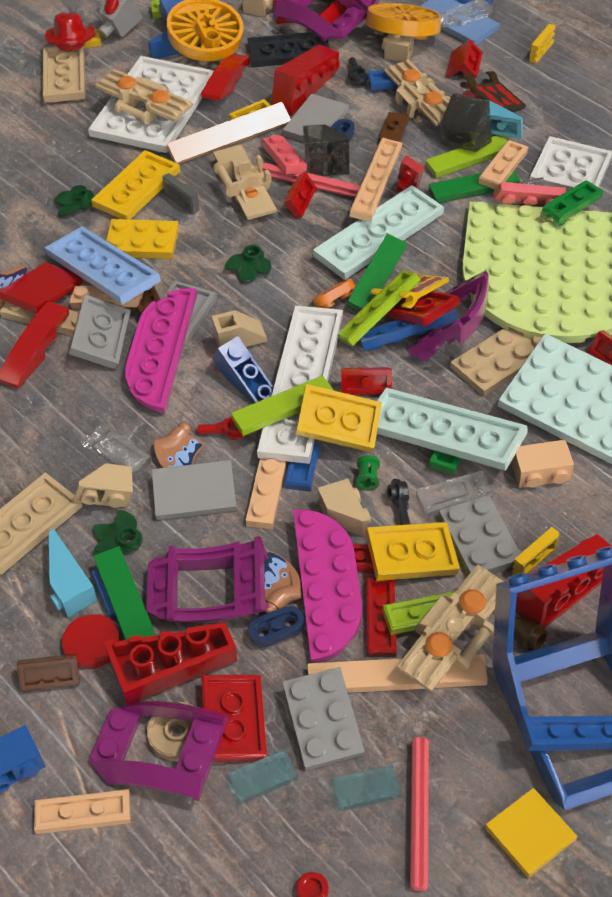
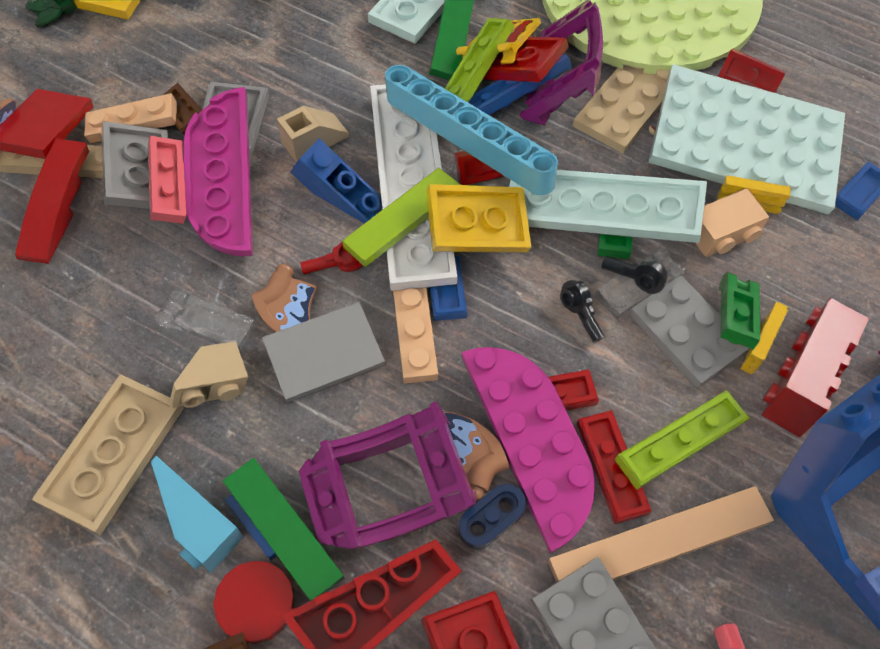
camera: 20 degrees left, 10 degrees up
(103, 265) = (115, 79): light blue plate -> none
(117, 534) = (239, 437): dark green plate -> none
(118, 345) = (166, 180): none -> coral plate
(144, 237) = (152, 37): yellow plate -> none
(249, 263) = (295, 44): dark green plate -> none
(340, 290) = (417, 55): orange plate -> none
(343, 505) = (517, 329): tan slope -> none
(356, 352) = (472, 130): none -> medium azure beam
(367, 472) = (530, 279): green bush -> none
(412, 551) = (622, 371): yellow plate -> none
(445, 622) = (709, 503): tan piece -> none
(456, 486) = (648, 276): none -> black plate
(520, 528) = (740, 311): none -> green plate
(529, 634) = (784, 440): dark brown cone -> none
(580, 448) = (768, 195): none -> yellow tile

